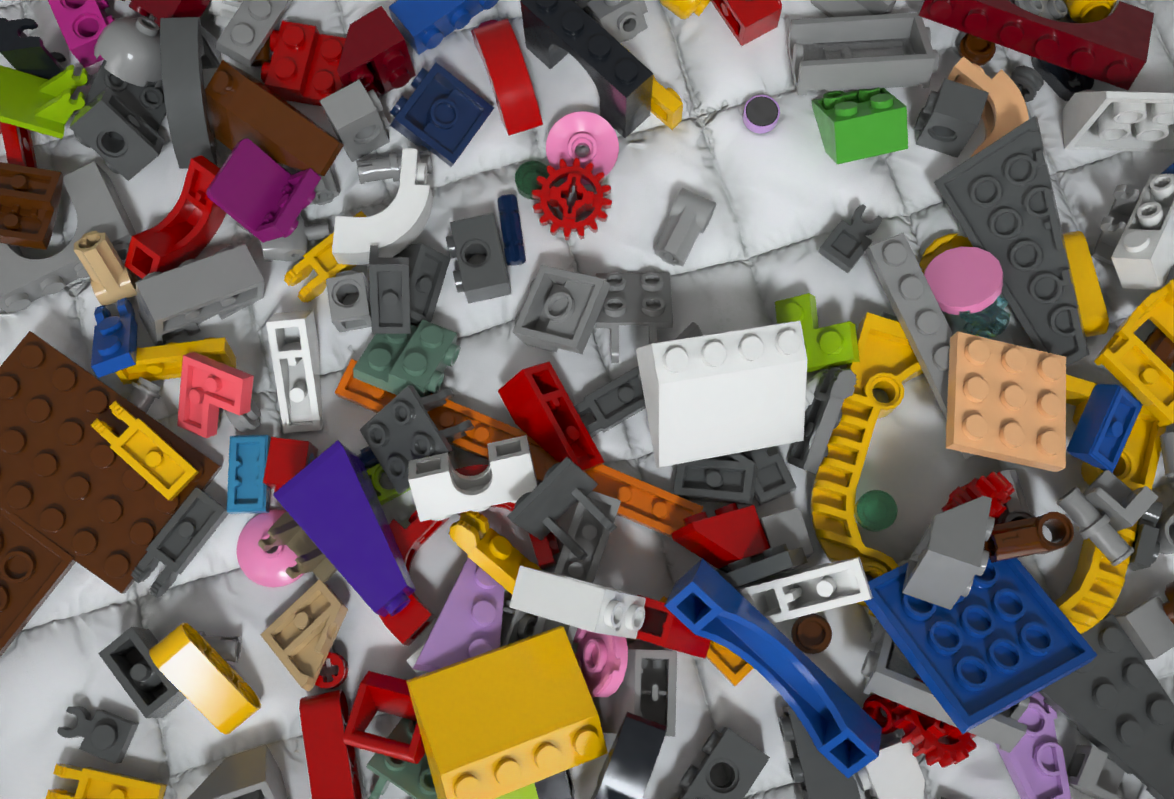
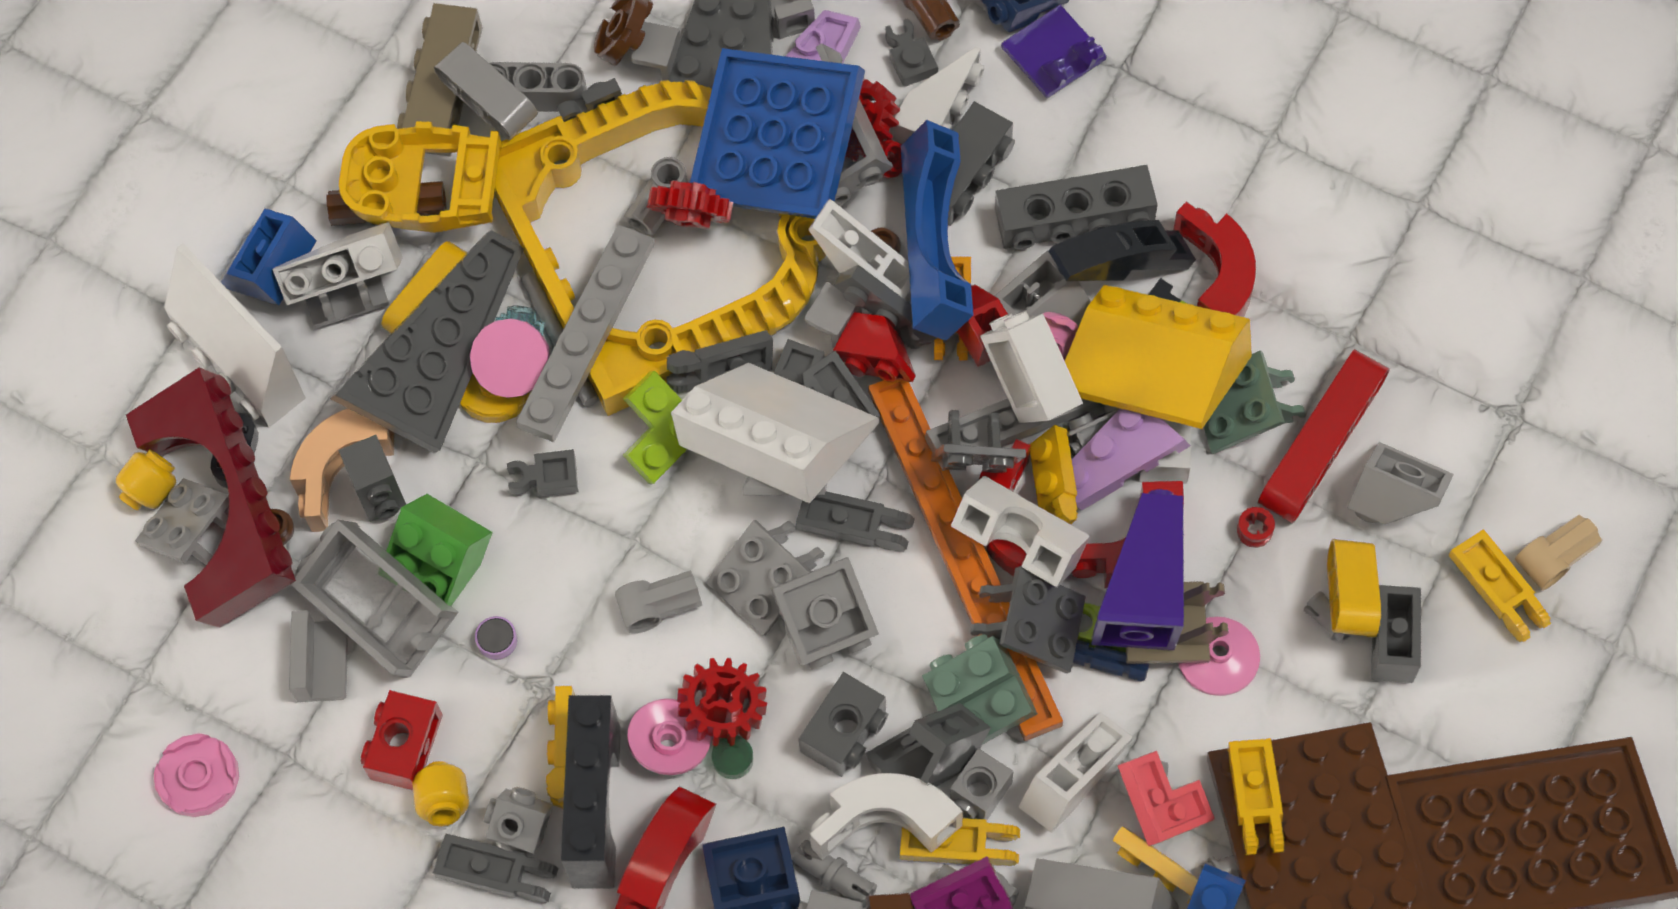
camera: 135 degrees left, 10 degrees down
(104, 735) = (1470, 633): dark grey plate -> none
(180, 540) = (1288, 718): dark grey hinge -> none
(245, 474) = (1189, 724): dark azure plate -> none
(286, 460) = (1151, 696): red brick -> none
(307, 633) = (1250, 560): tan wing -> none
(389, 696) = (1219, 450): red tile -> none
(511, 230) = (787, 736): dark blue axle -> none
(548, 415) = (916, 544): red slope -> none
(875, 510) = (755, 264): clear green tile -> none
(950, 554) = (748, 174): light grey slope -> none
(1006, 402) = (588, 243): light nougat plate -> none
(1026, 537) = (678, 155): reddish brown piece -> none
(1027, 81) = (277, 464): dark grey bush -> none
(1095, 526) = (624, 125): light grey pin -> none
(1104, 426) = (538, 178): blue slope -> none
(1118, 501) = (589, 125): light grey panel -> none

